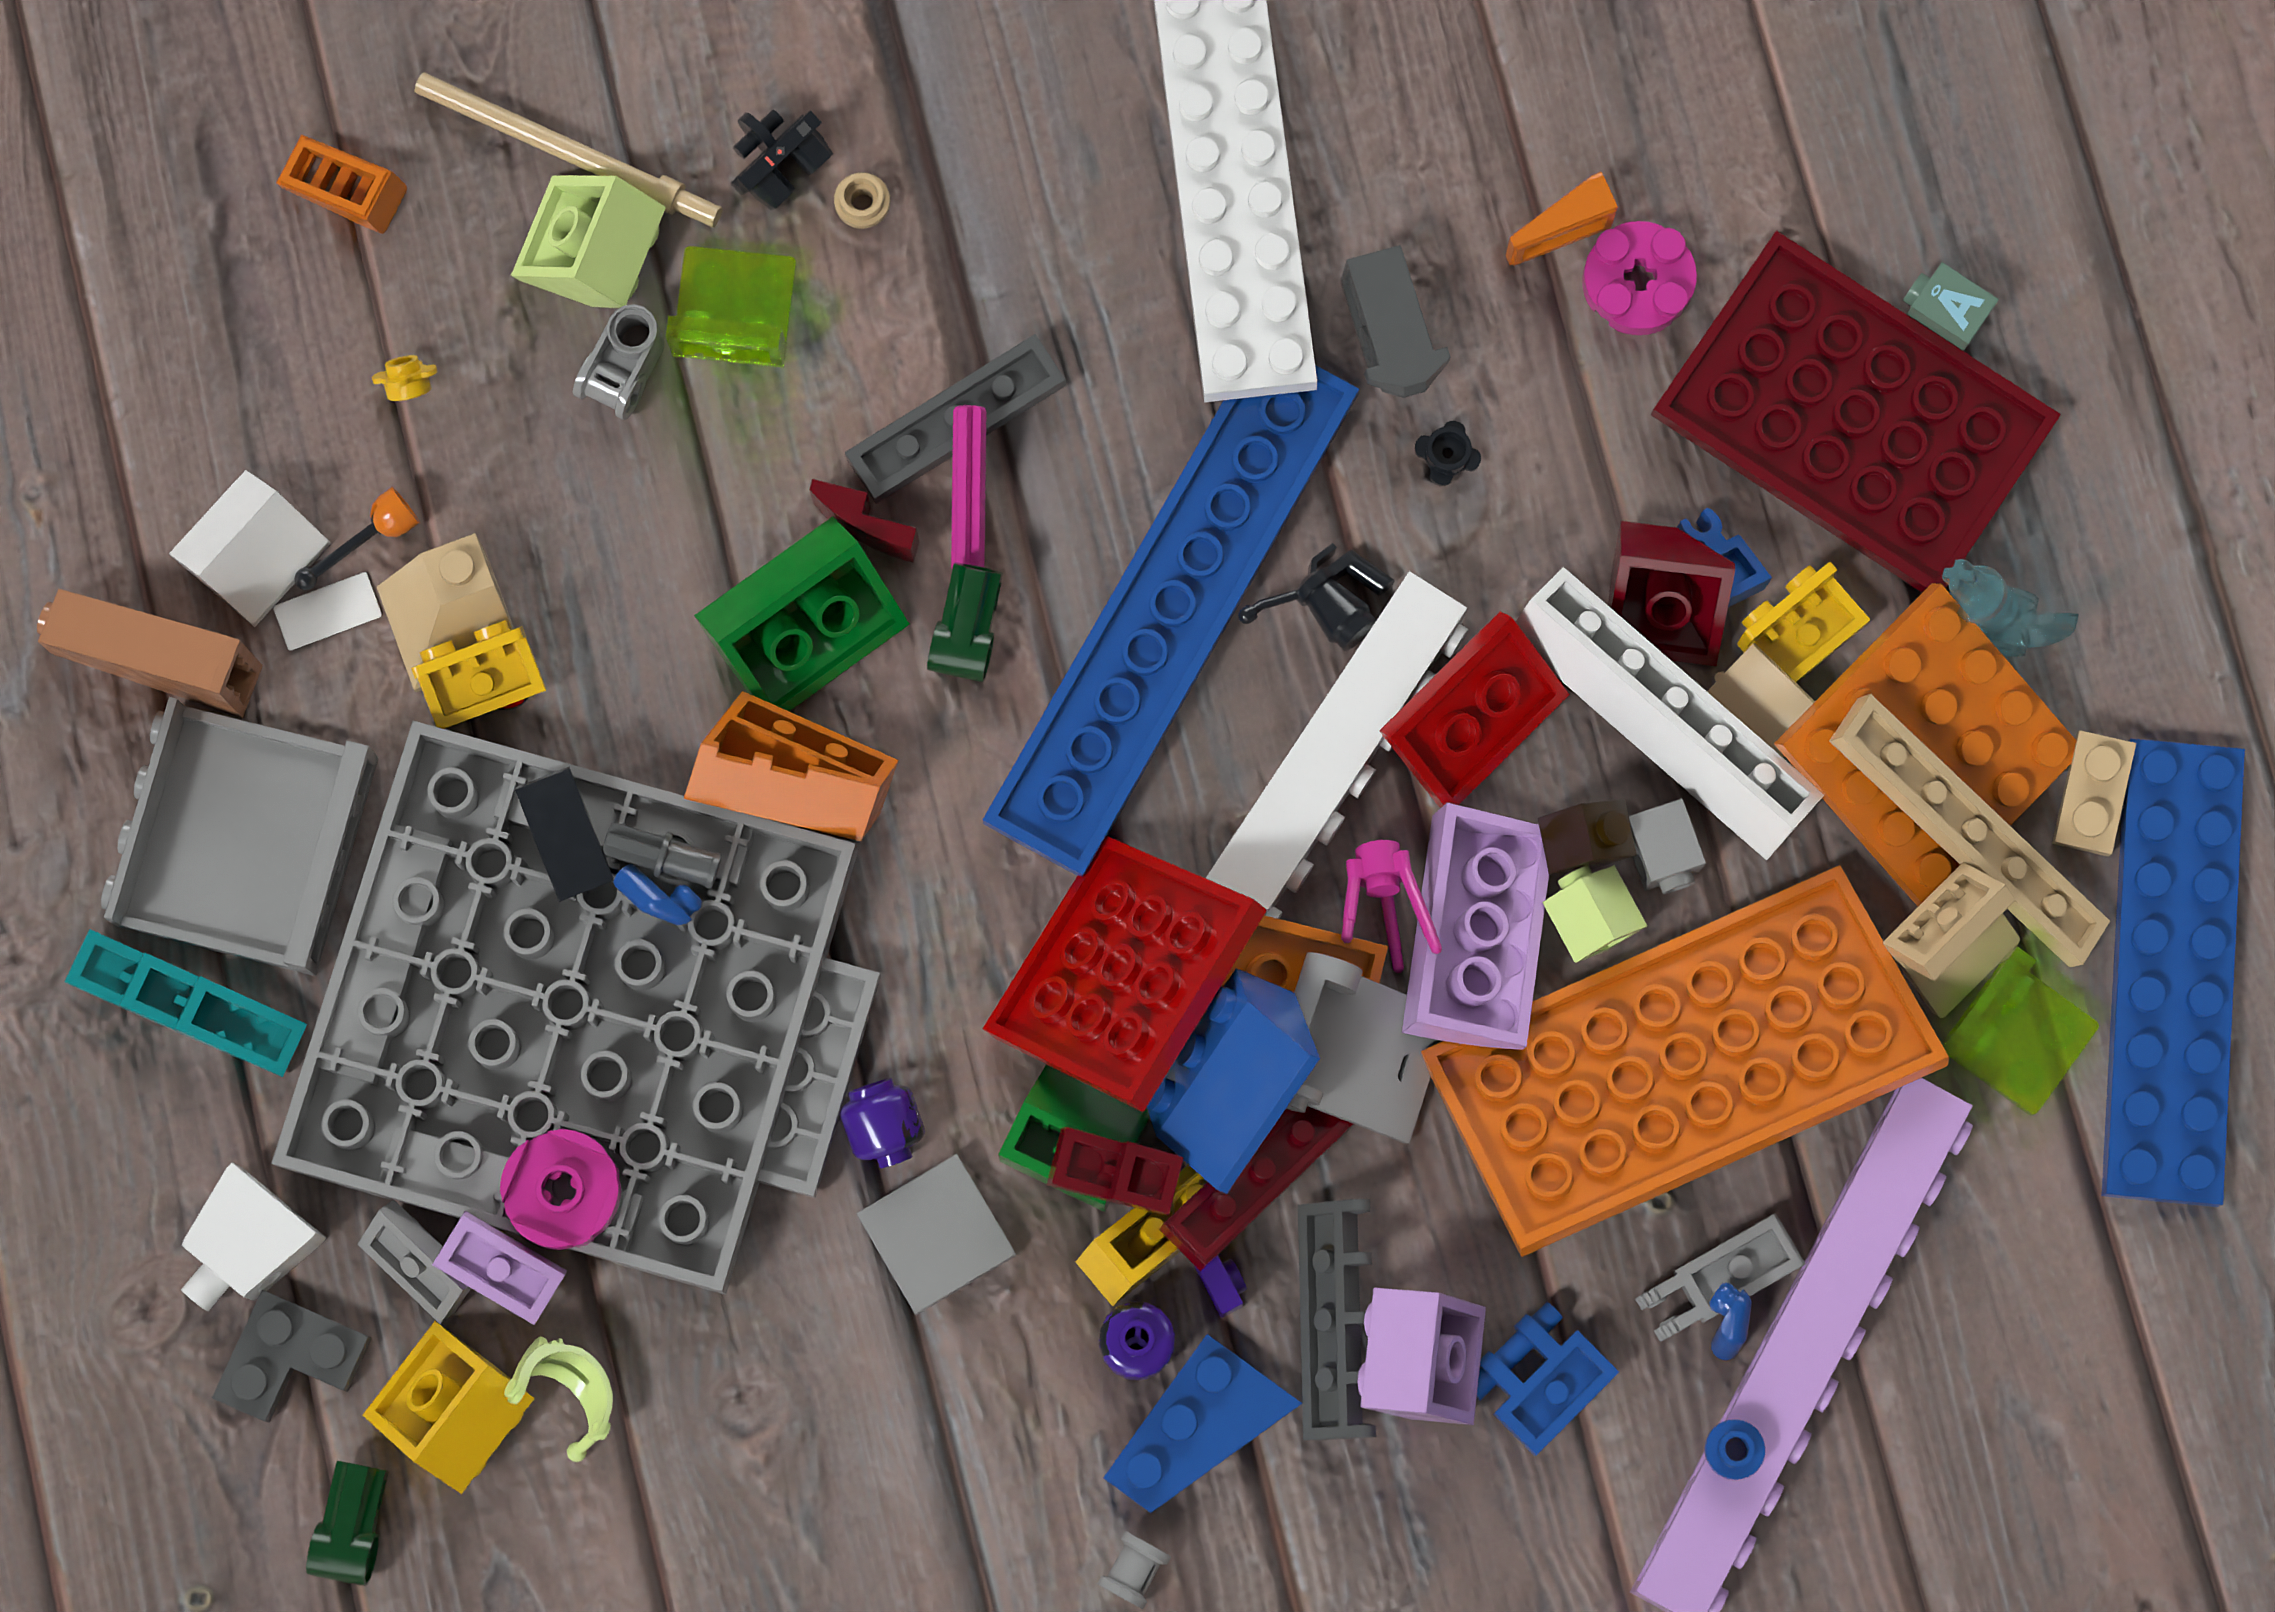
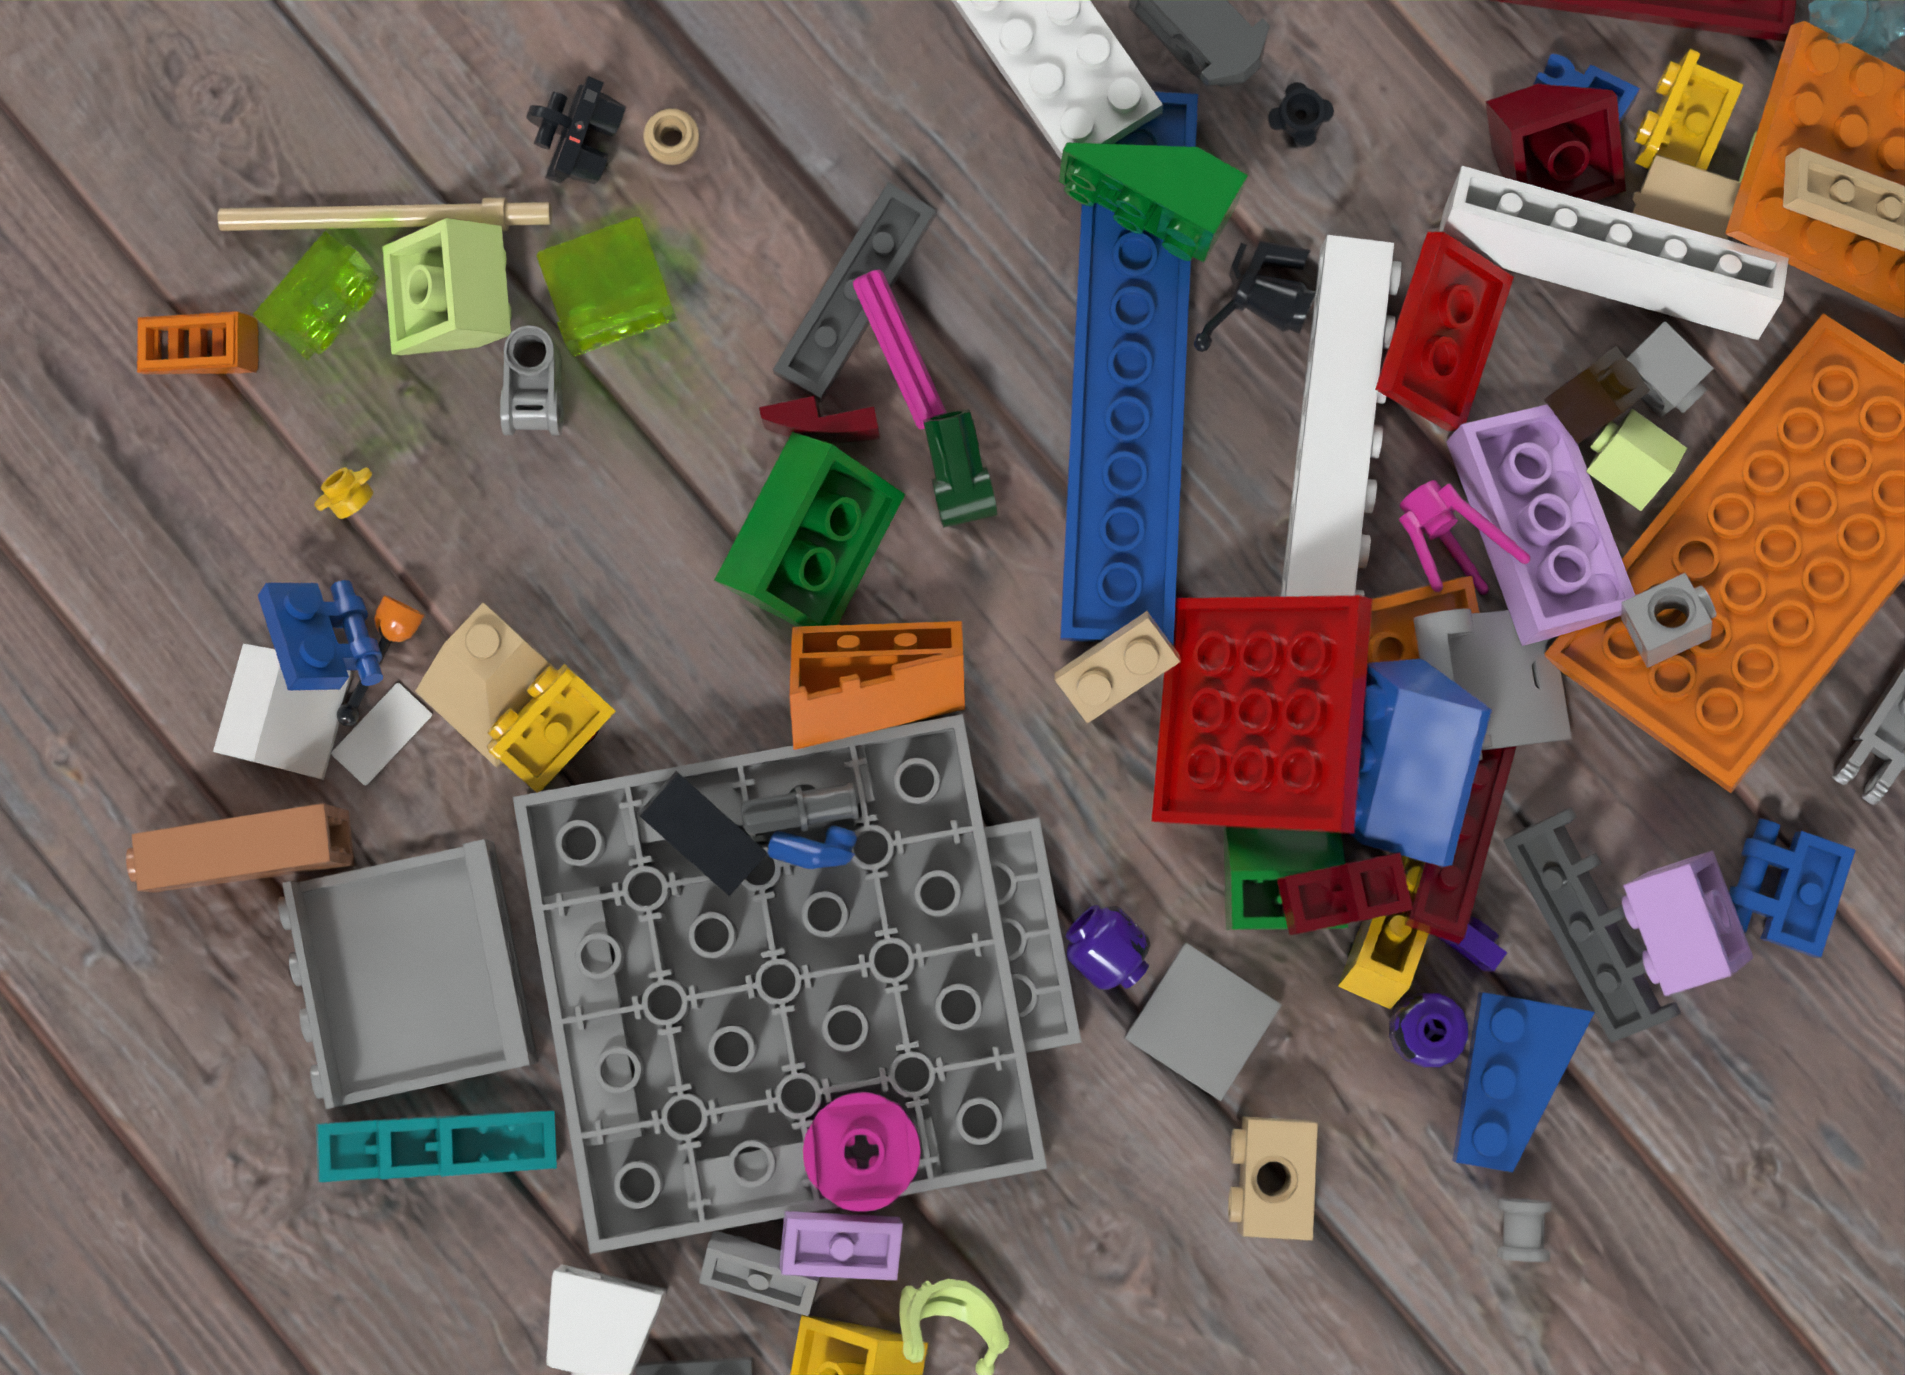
camera: 25 degrees left, 5 degrees up
(301, 488) = (305, 636): none -> blue plate
(470, 193) = (318, 296): none -> clear neon green bracket
(927, 1443) = (1291, 1208): none -> tan brick
(1020, 871) = (1117, 667): none -> tan plate
(1272, 455) = (1158, 189): none -> green slope
(1526, 1050) = (1659, 642): none -> light grey brick

